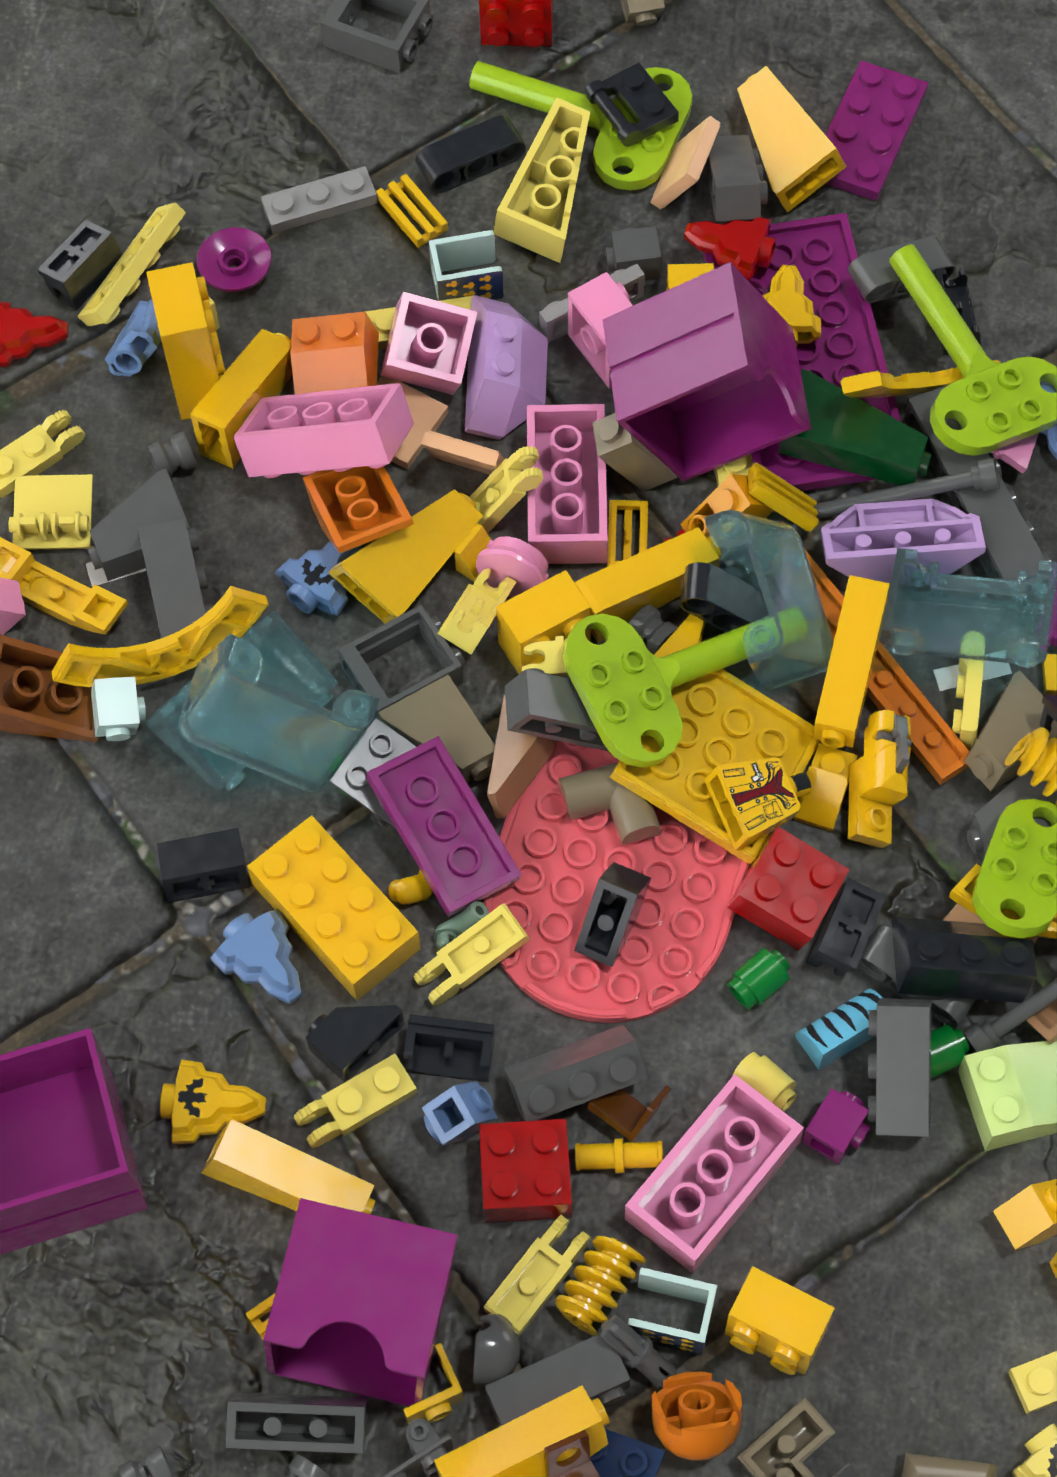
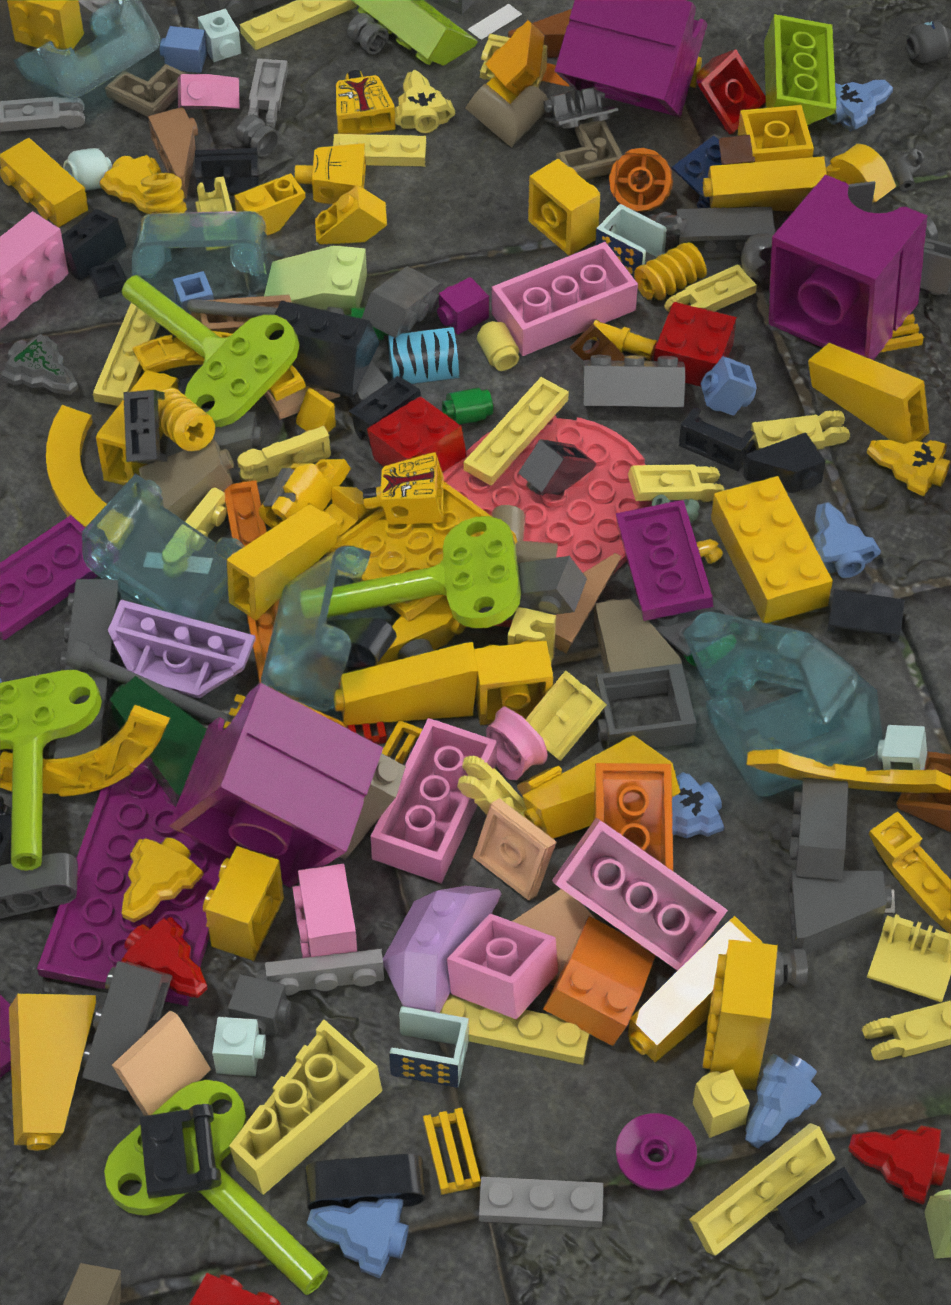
camera: 160 degrees left, 10 degrees down
(450, 115) = (364, 1232): none -> medium blue rock
(632, 207) = (237, 1046): none -> light aqua brick
(682, 950) = (516, 431): none -> light yellow plate
(925, 903) = (316, 412): none -> yellow slope
(932, 826) = (301, 449): none -> light yellow hinge

